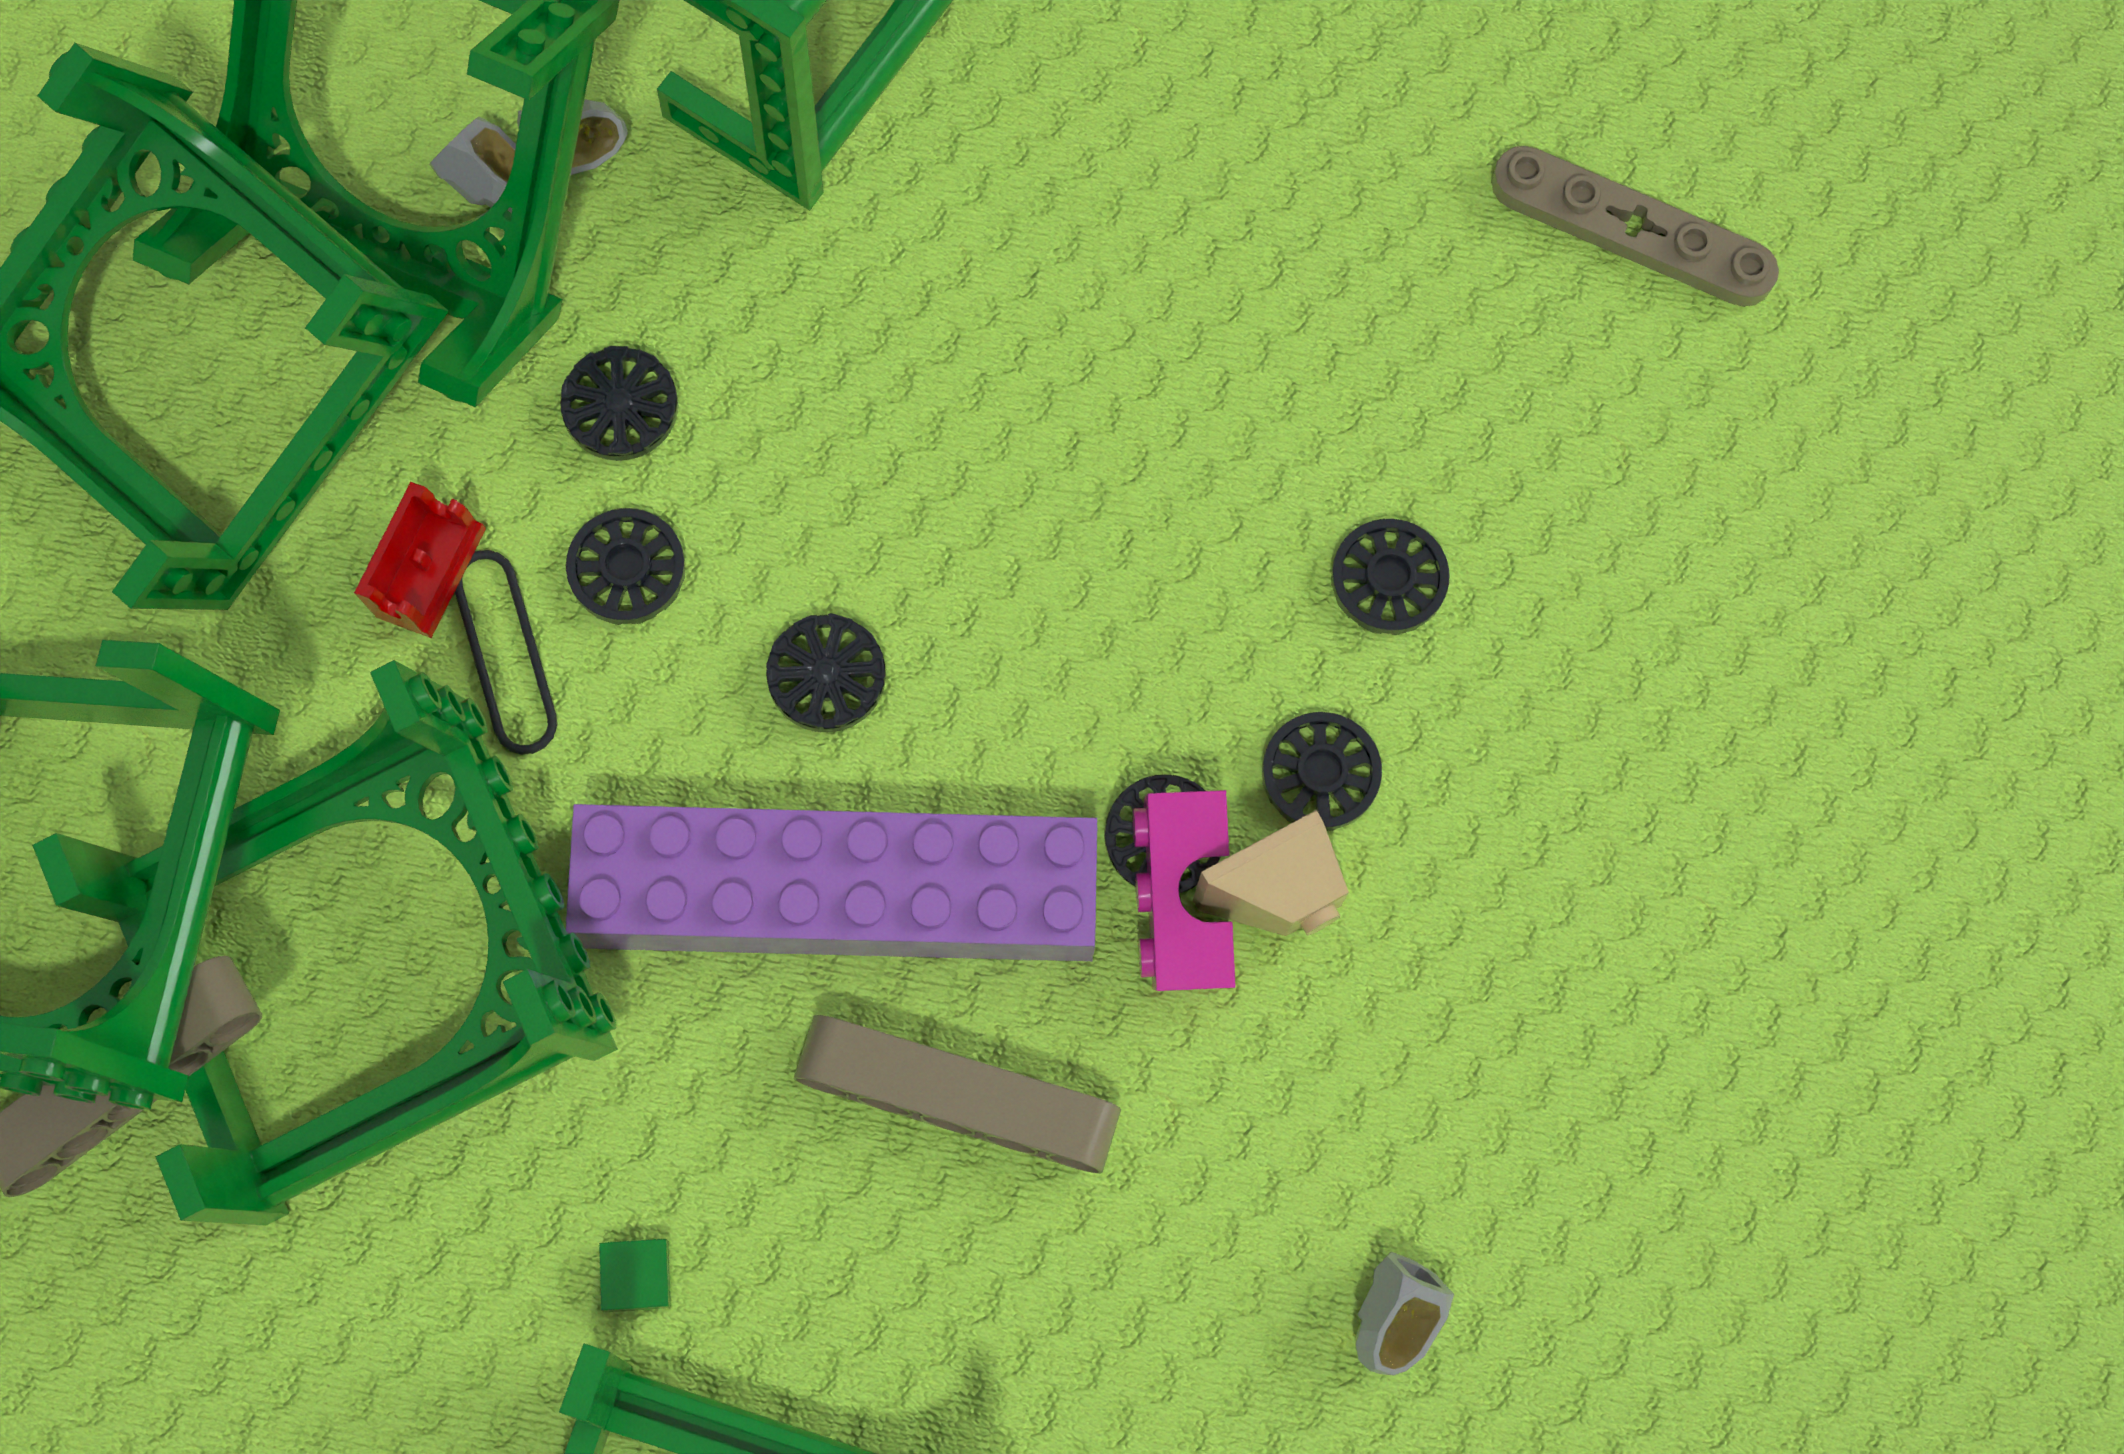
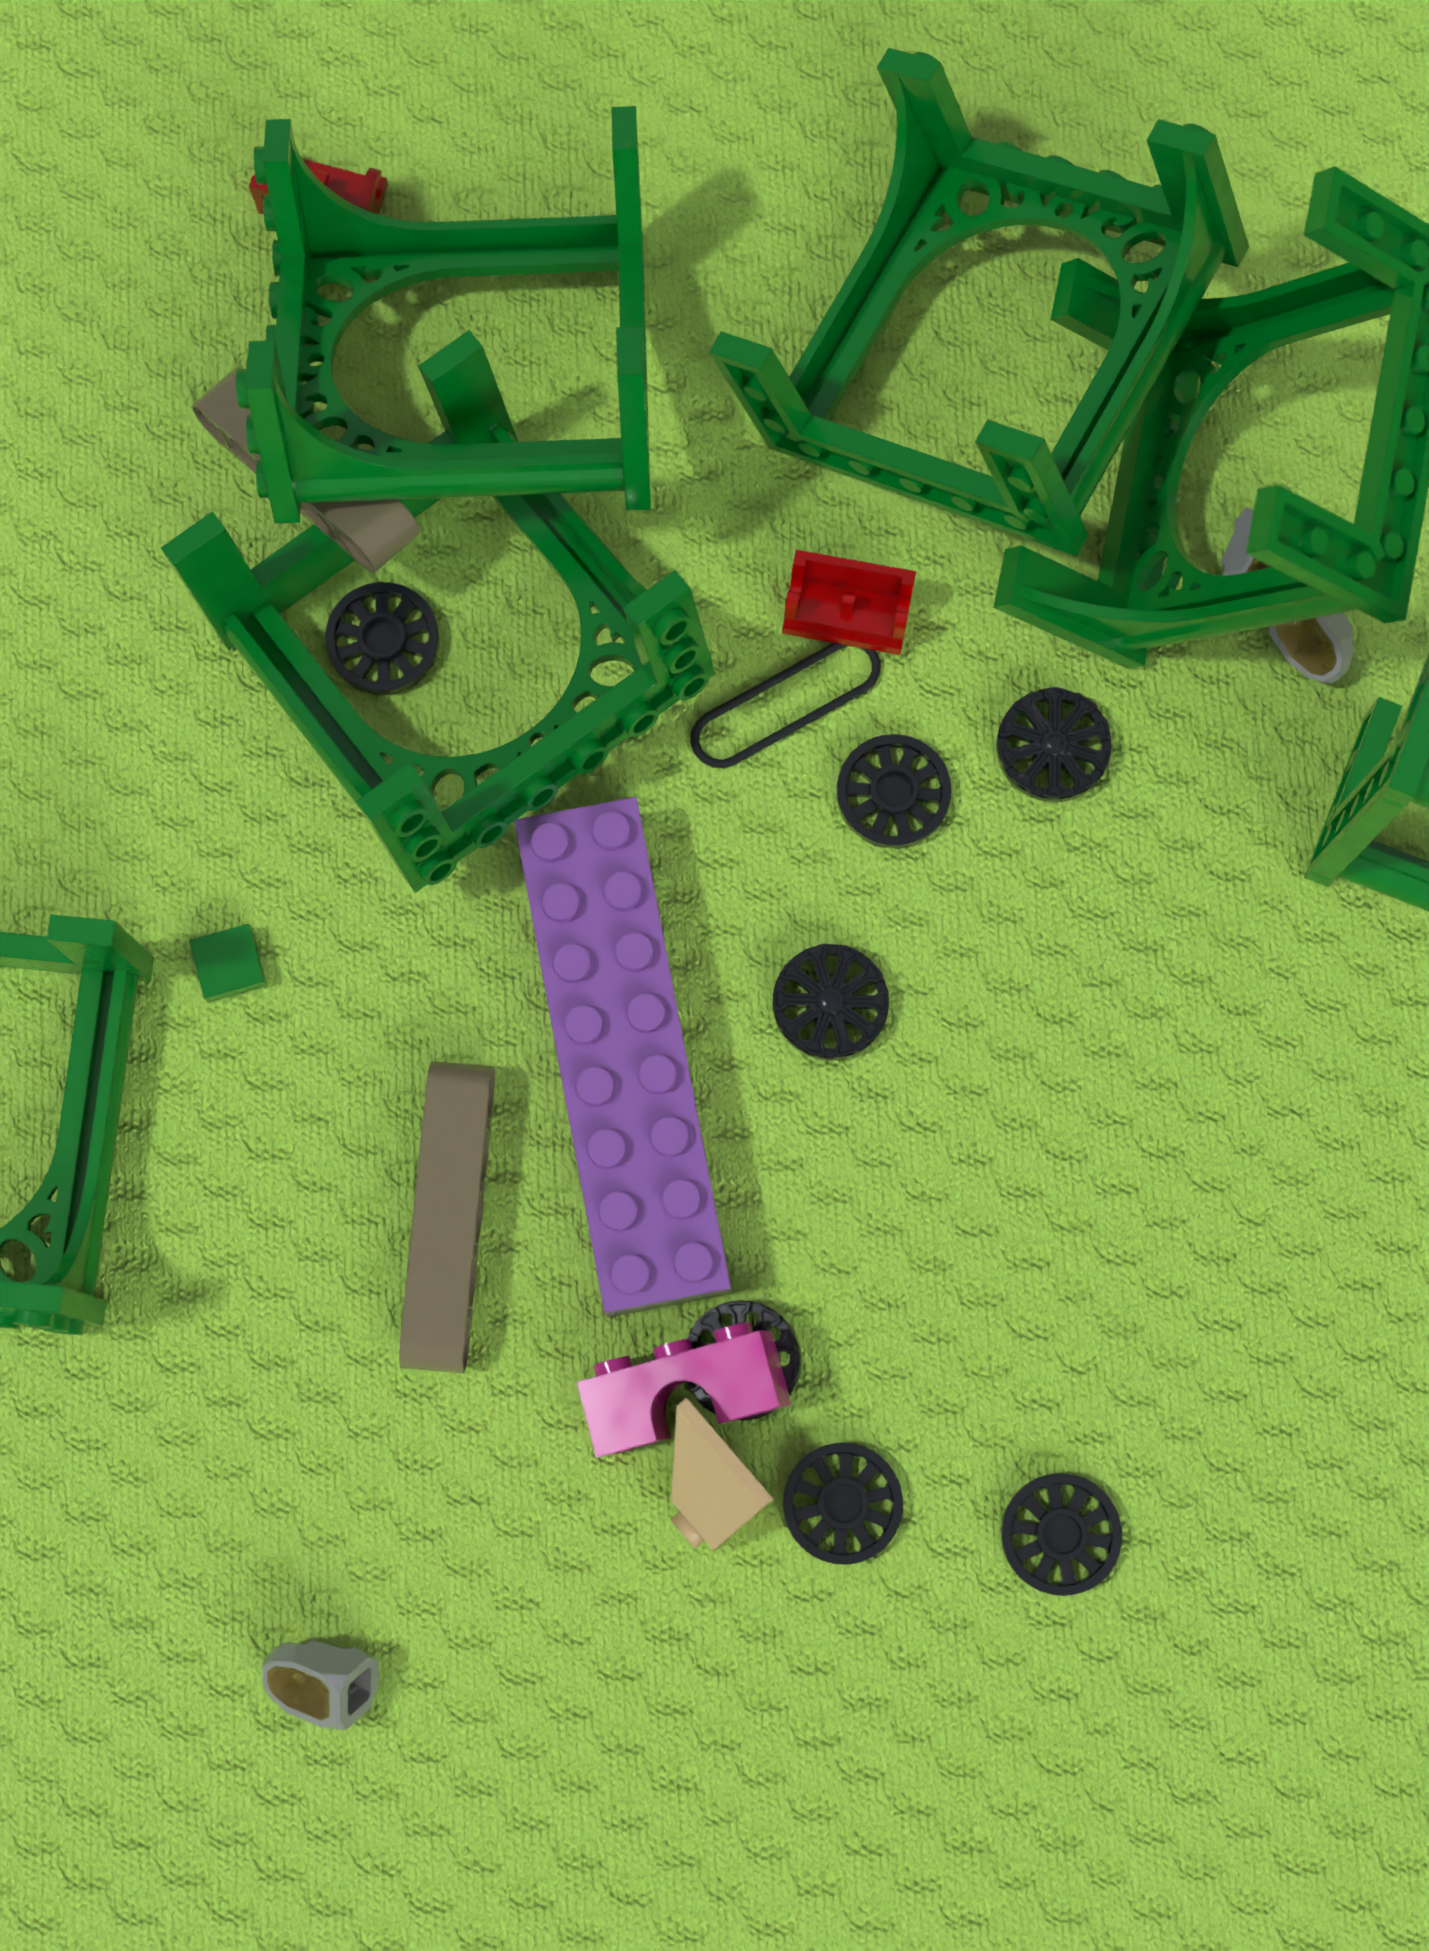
camera: 85 degrees right, 5 degrees up
(322, 1045) = (382, 638): none -> black wheel

